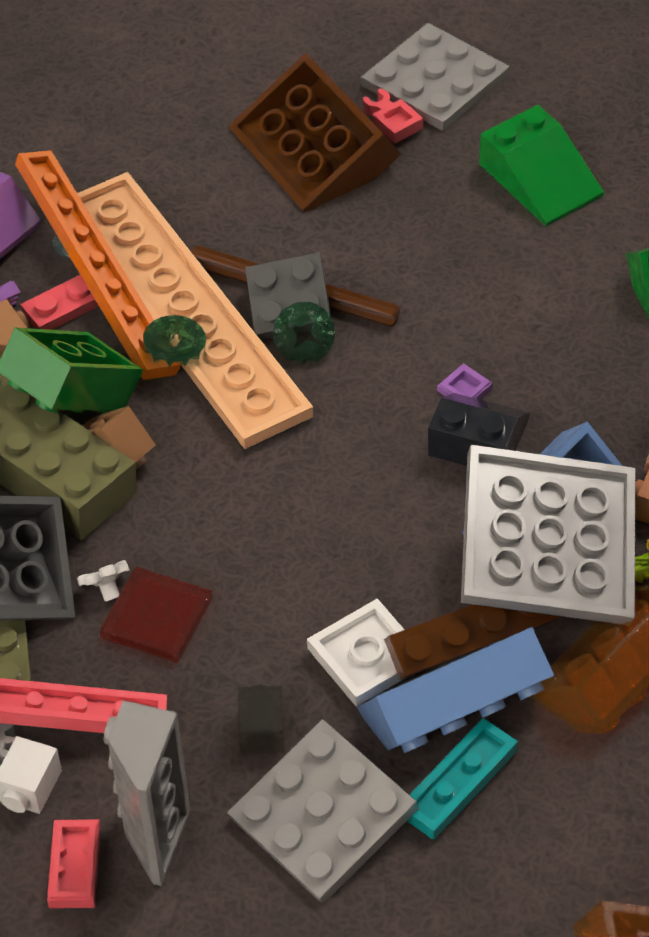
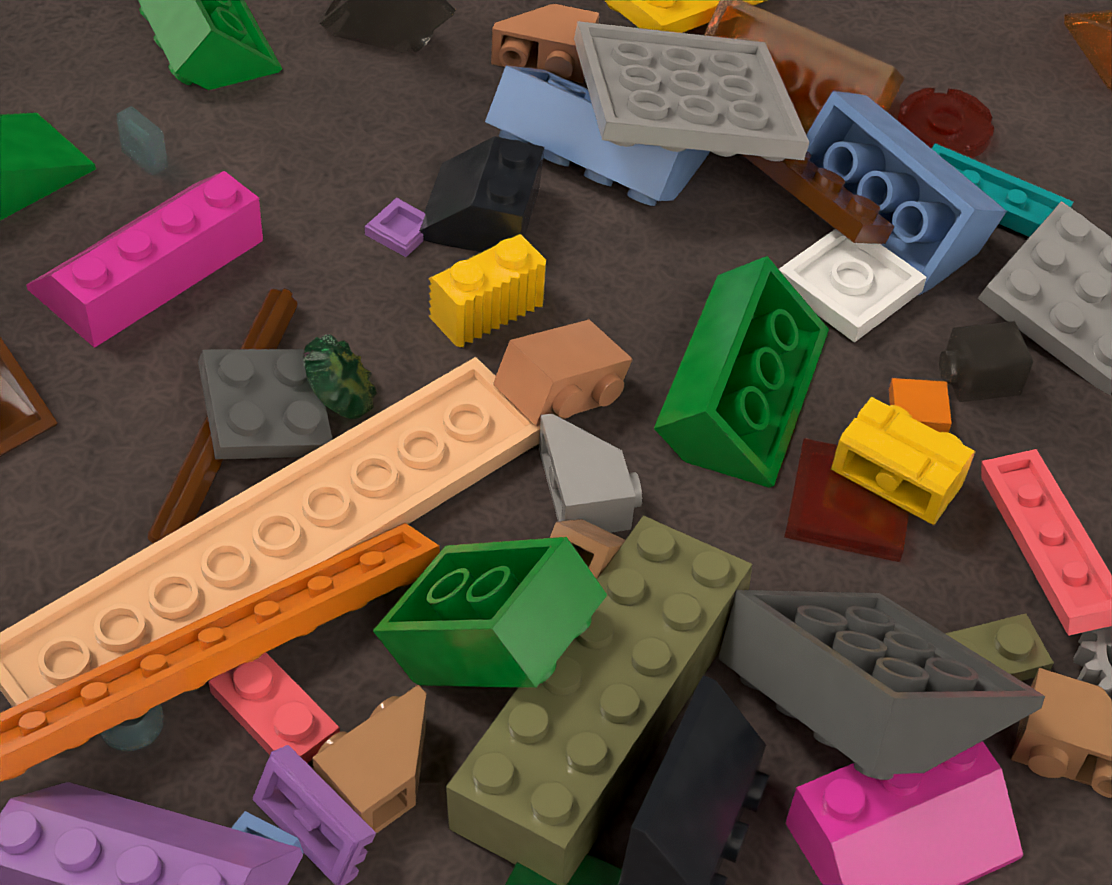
camera: 105 degrees left, 0 degrees up
(105, 579) = (816, 554): white plant -> none
(162, 628) = (902, 460): none -> yellow brick
(163, 330) = (360, 505): clear green gear -> none
(196, 455) = (587, 476): none -> light grey slope
(233, 672) = (923, 400): none -> orange tile
(273, 563) = (744, 375): none -> green slope
(282, 446) = (562, 371): none -> nougat brick
(376, 418) = (487, 290): none -> yellow brick
(439, 246) = (152, 258): none -> dark pink slope
(550, 777) = (930, 120): none -> clear red tile
(556, 239) = (142, 141): none -> clear light blue tile

